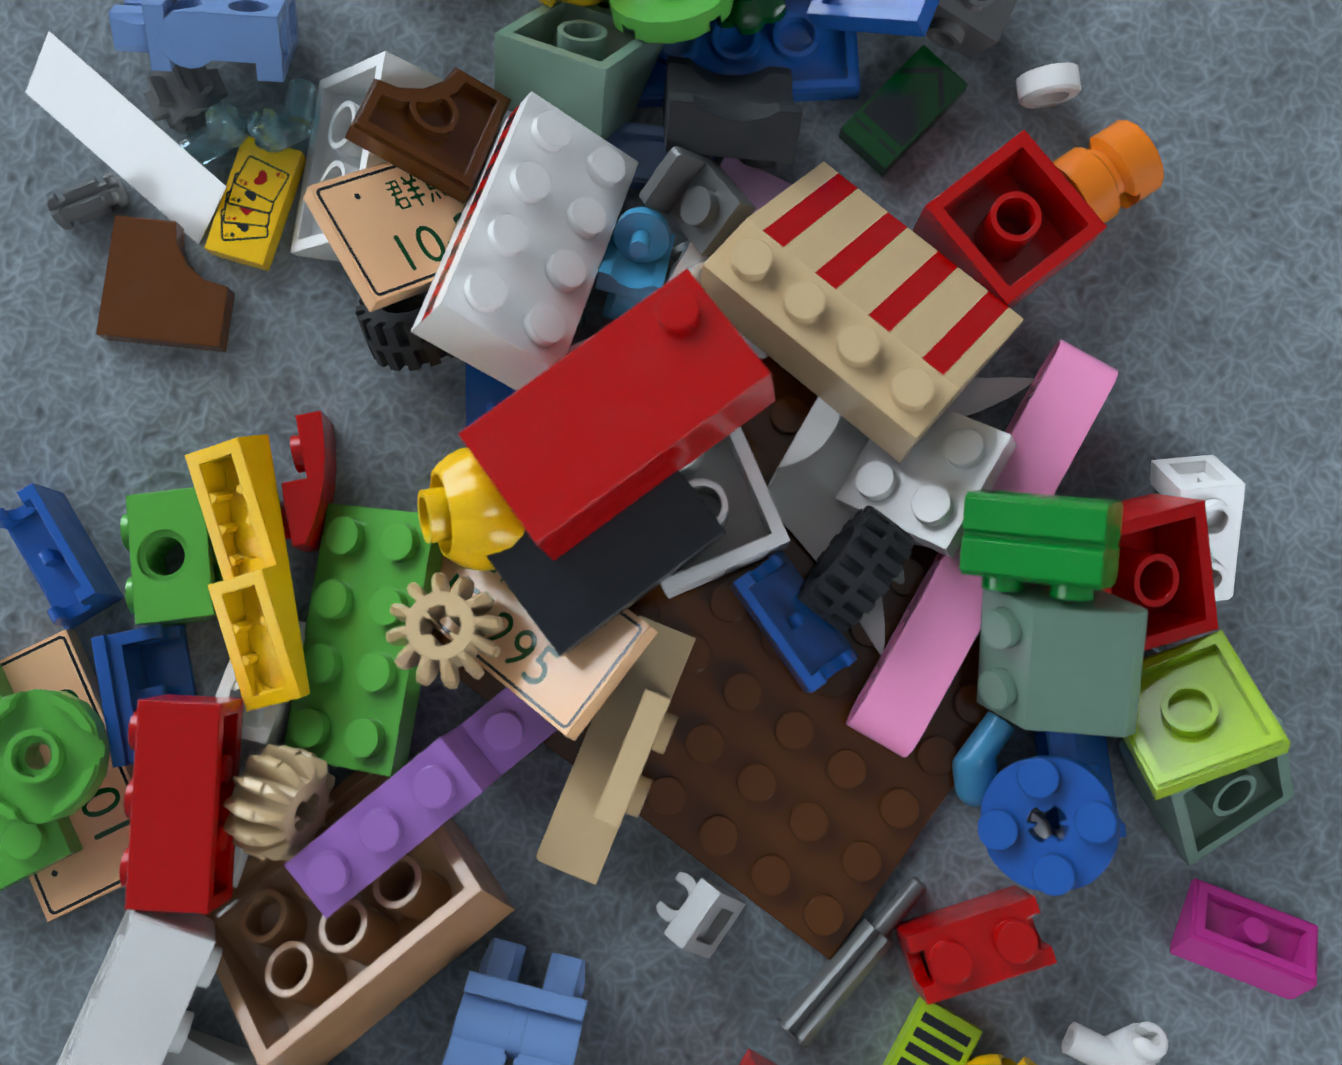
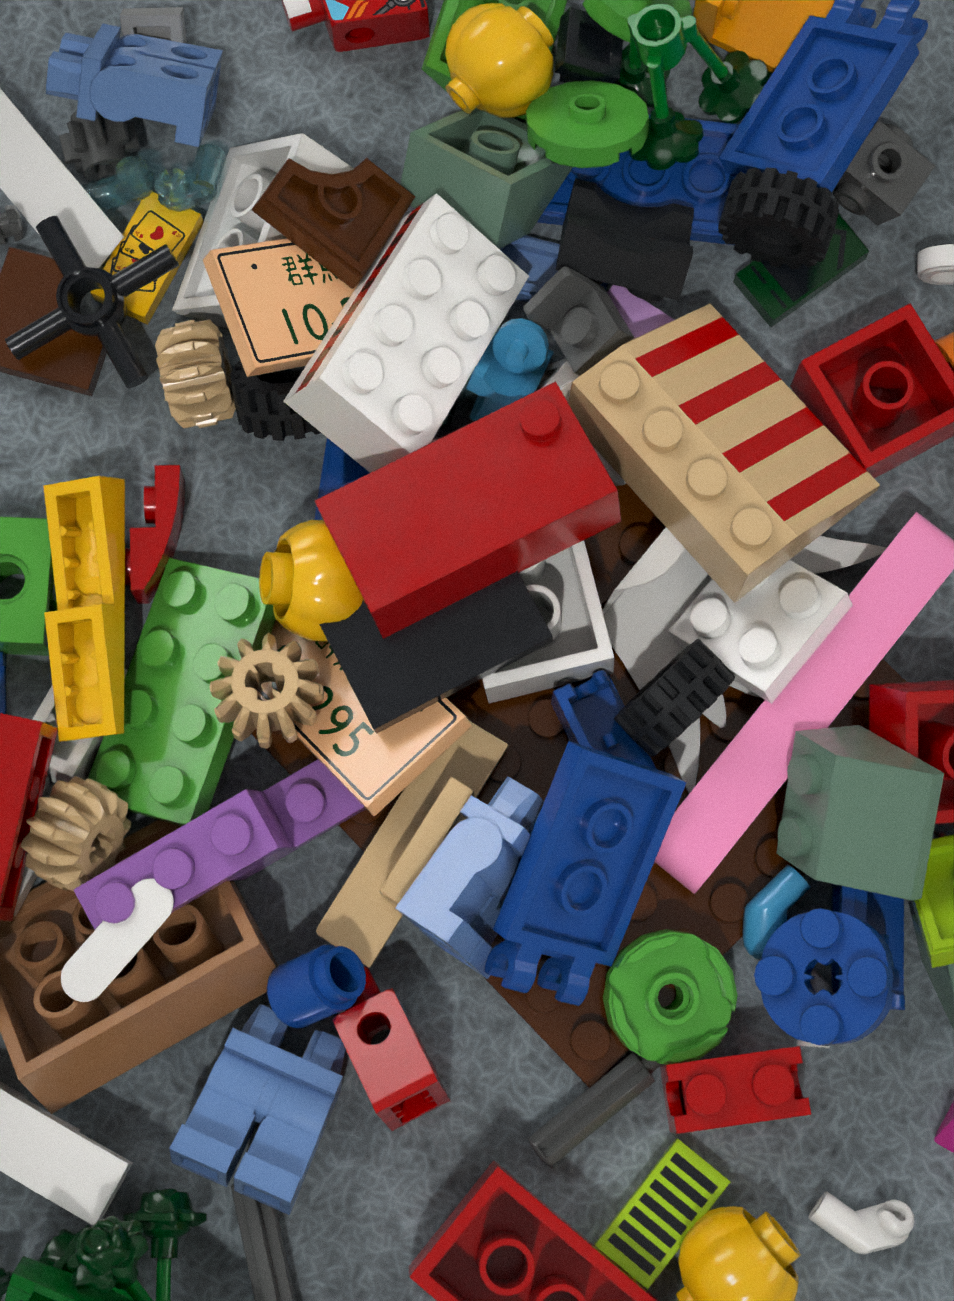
camera: 10 degrees right, 5 degrees down
(181, 252) = (72, 288): none -> black bar
(320, 314) = (195, 373): none -> tan gear
(335, 915) = (115, 944): none -> white sticker
(545, 917) = (316, 985): none -> blue brick
(648, 983) = (396, 1071): none -> torso
(692, 781) = (471, 873): none -> medium blue hips
(703, 916) = (470, 1019): light grey tile -> none
(792, 761) = (582, 871): none -> blue tile
(879, 63) = (778, 218): none -> black tyre
(921, 880) = (702, 1001): none -> bright green plate
(1041, 541) = (854, 692): green brick -> none

